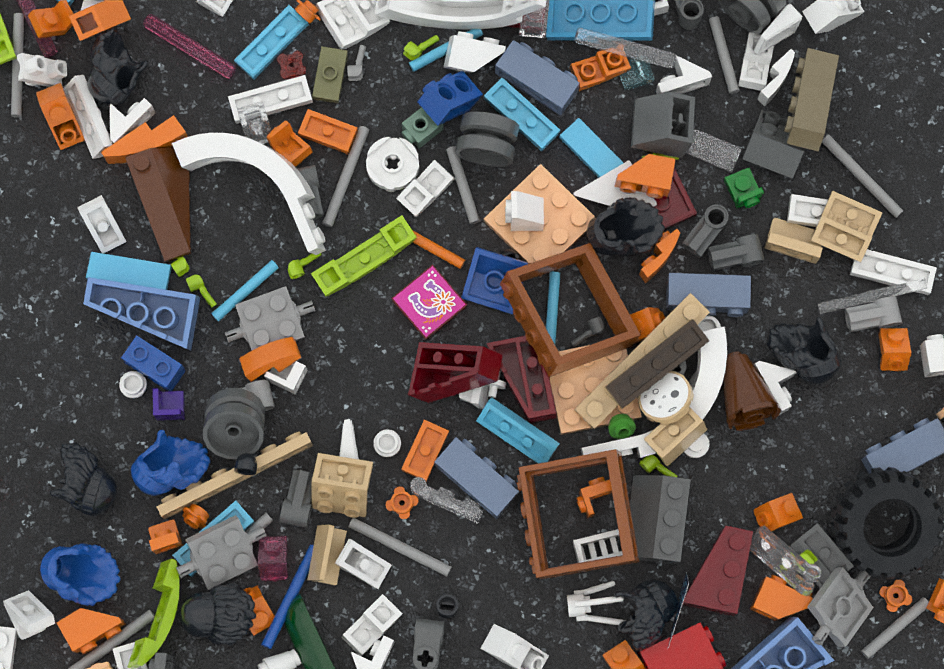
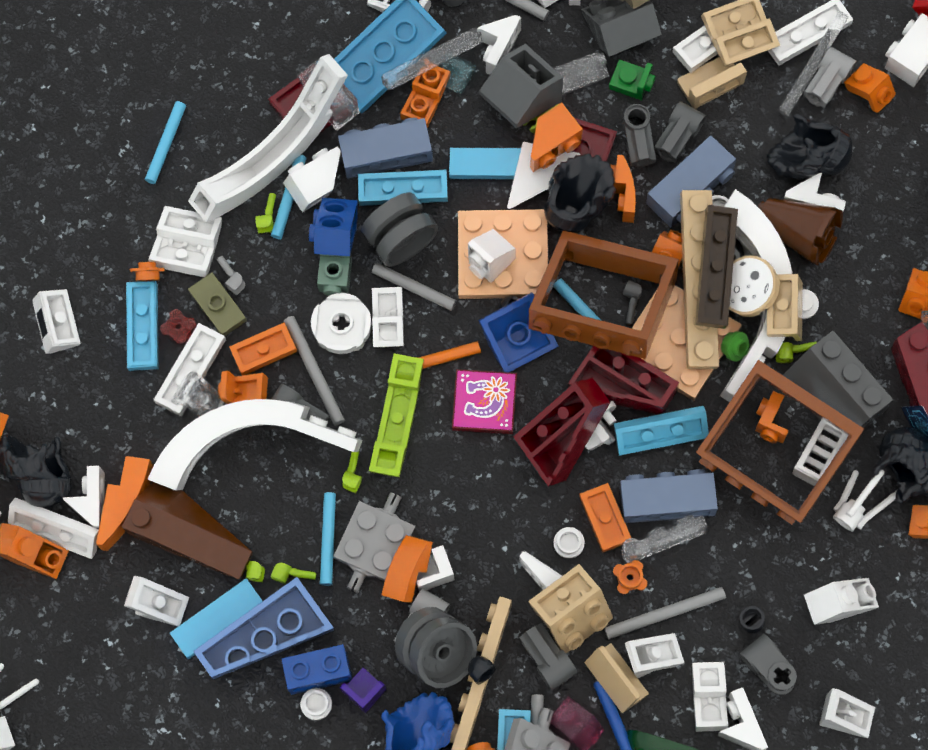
camera: 40 degrees left, 5 degrees down
(189, 46) = (78, 392): clear pink axle -> none

